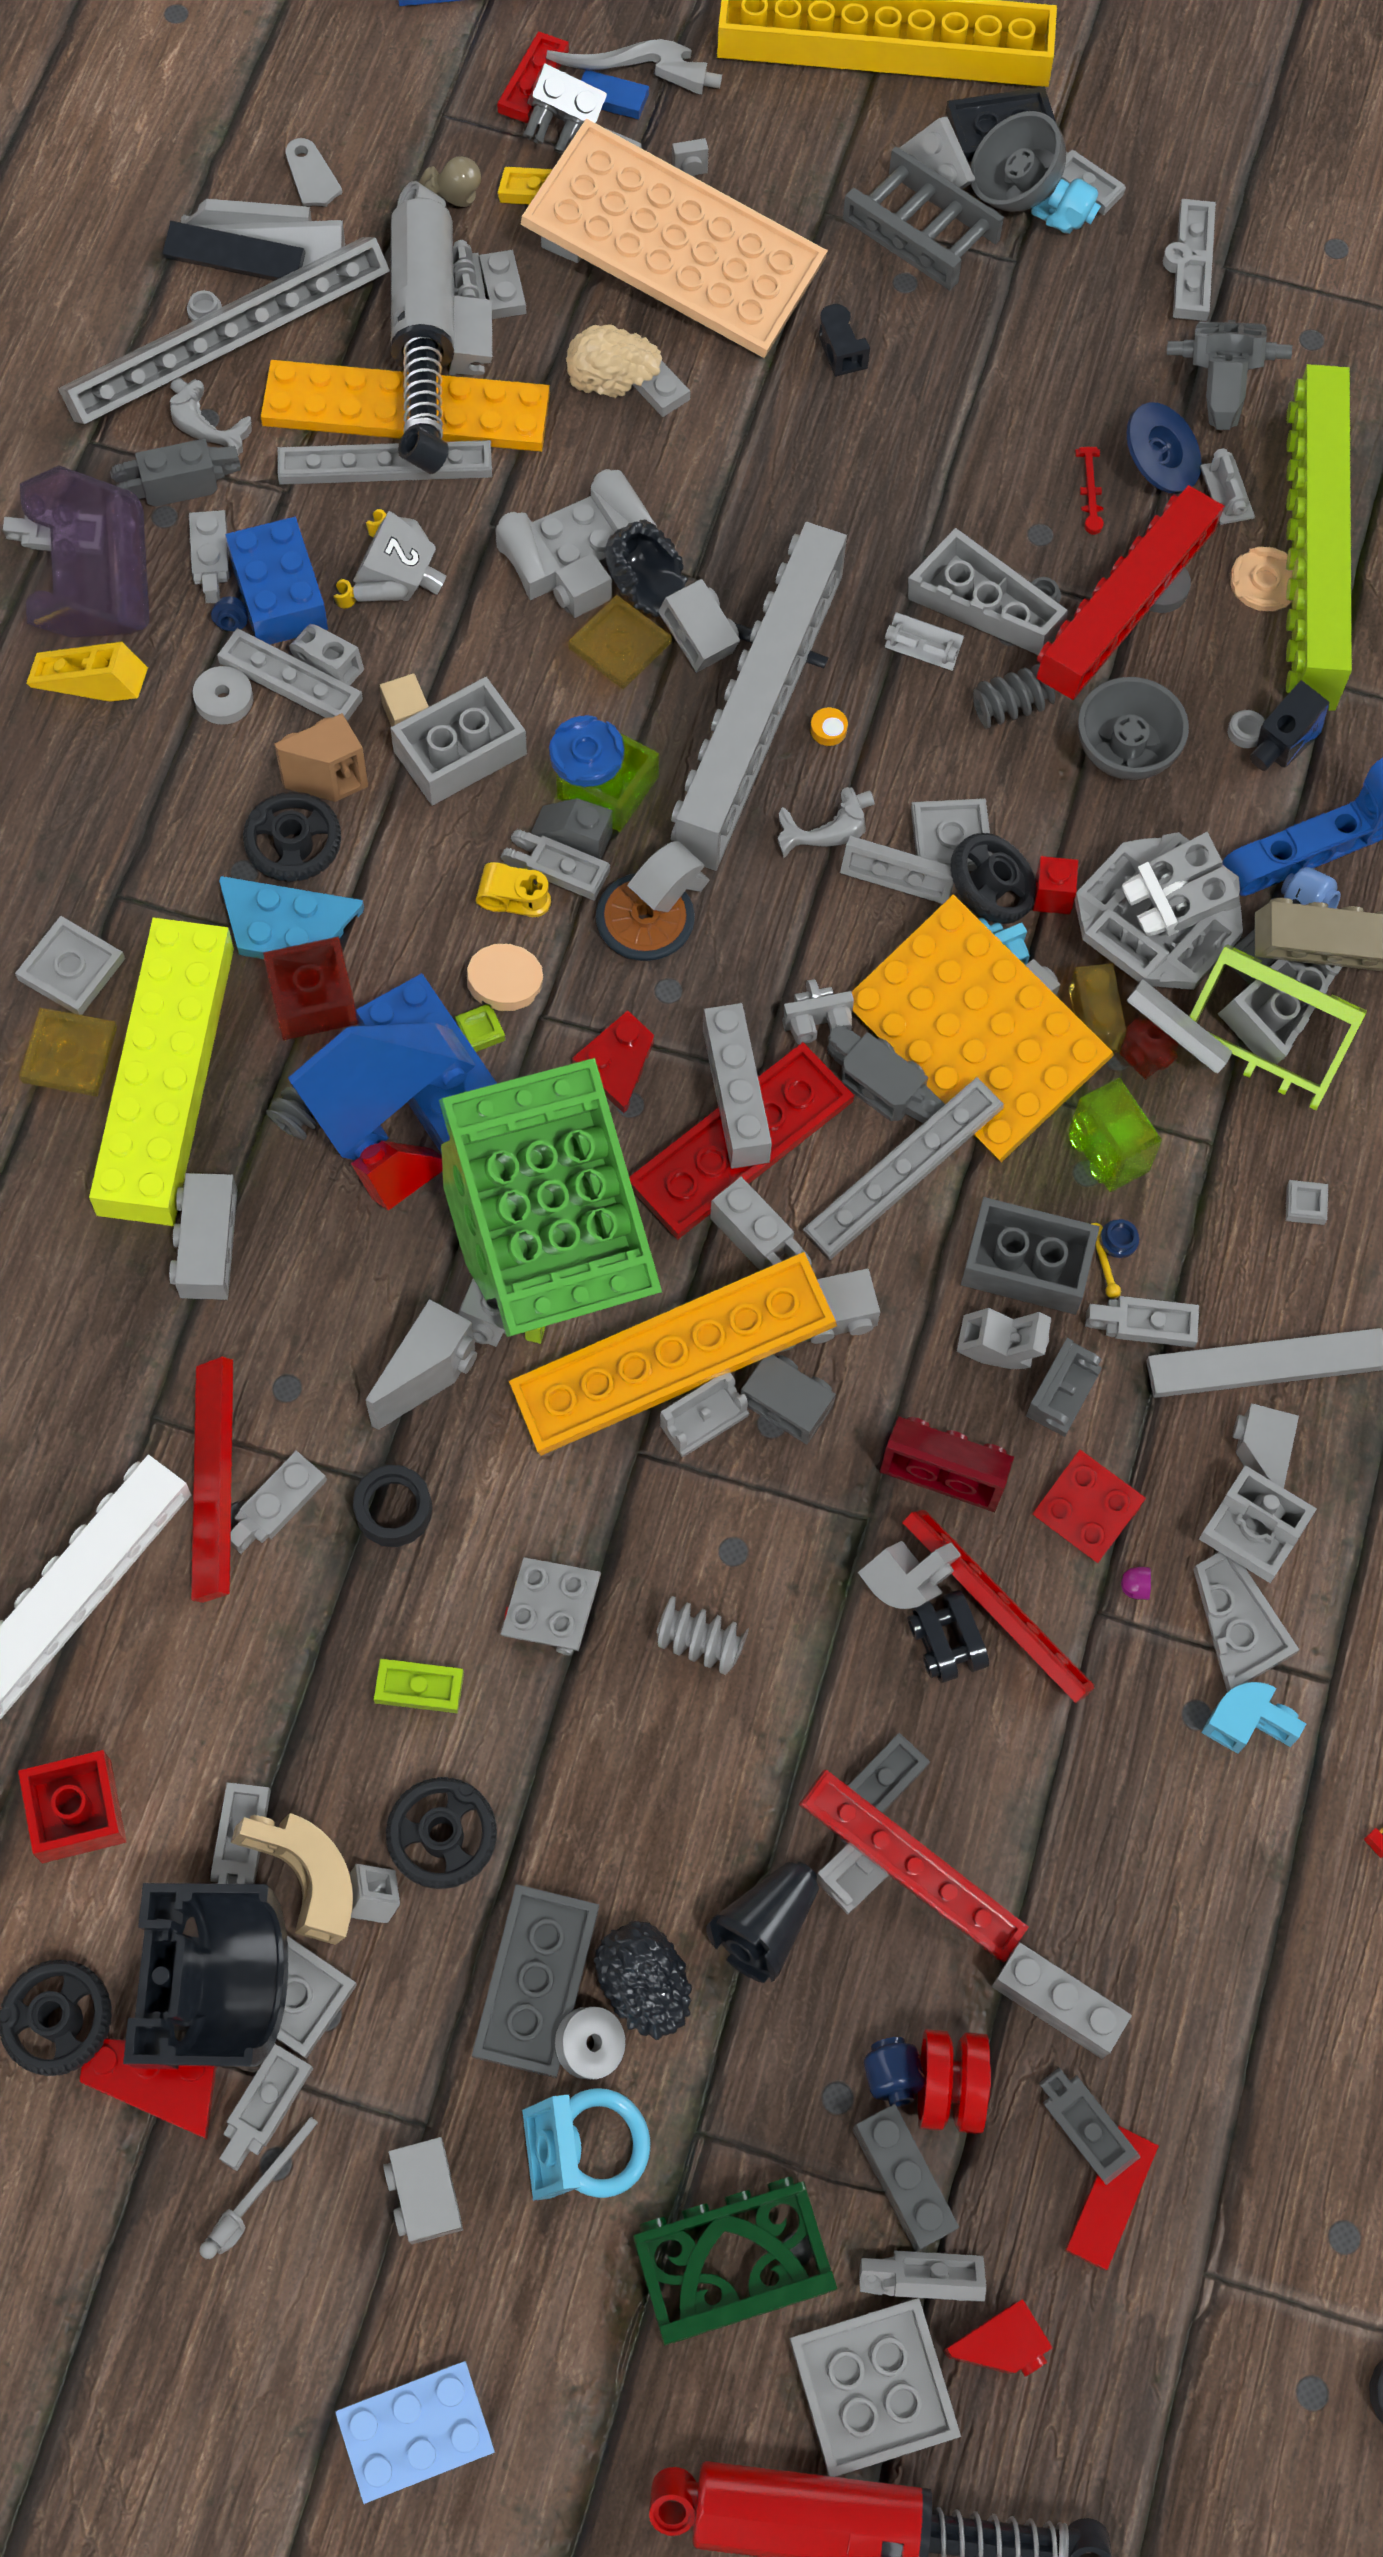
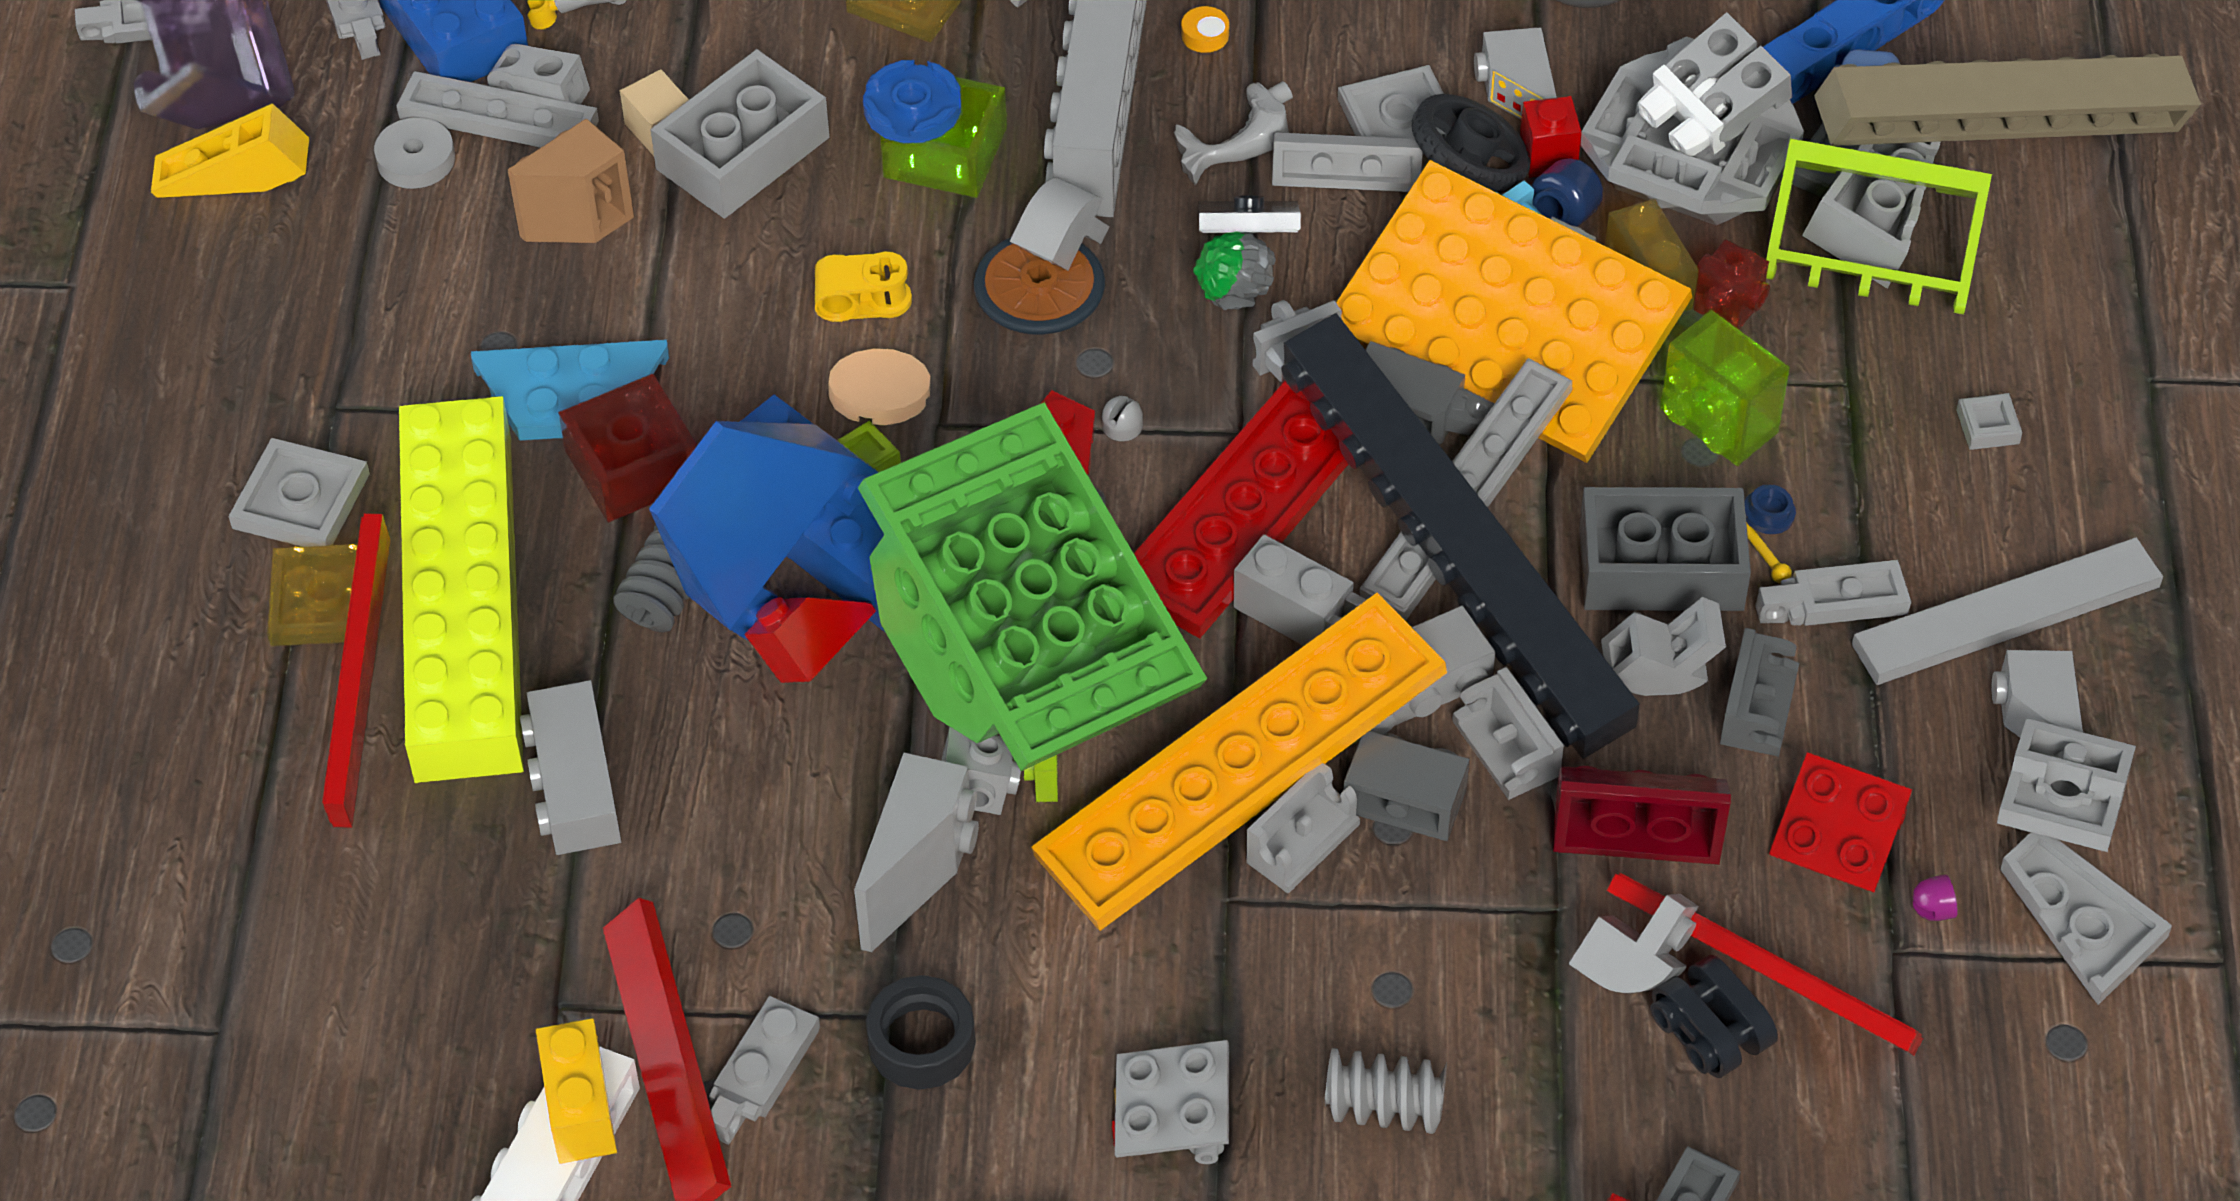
camera: 10 degrees left, 15 degrees down
(72, 1124) = (356, 671): none -> red tile
(135, 1504) = (576, 1091): none -> yellow brick
(229, 614) = (398, 49): dark blue plate -> none
(292, 822) = (552, 279): black wheel -> none
(559, 863) = (924, 246): light grey hinge -> none
(576, 825) = (918, 201): dark grey slope -> none
(678, 1049) = (1129, 422): none -> light grey hinge
(736, 1086) = (1224, 434): light grey brick -> none
(788, 944) = (1235, 270): none -> piece
(810, 902) = (1248, 214): none -> plate
(873, 1375) = (1509, 734): none -> light grey hinge
(881, 1210) = (1460, 537): none -> black brick
(1048, 821) = (1514, 68): none -> light grey slope
(1052, 937) = (1568, 191): none -> dark blue head
(1179, 1026) = (1763, 247): light grey tile -> none
(1249, 1708) = (2132, 1012): medium azure brick -> none

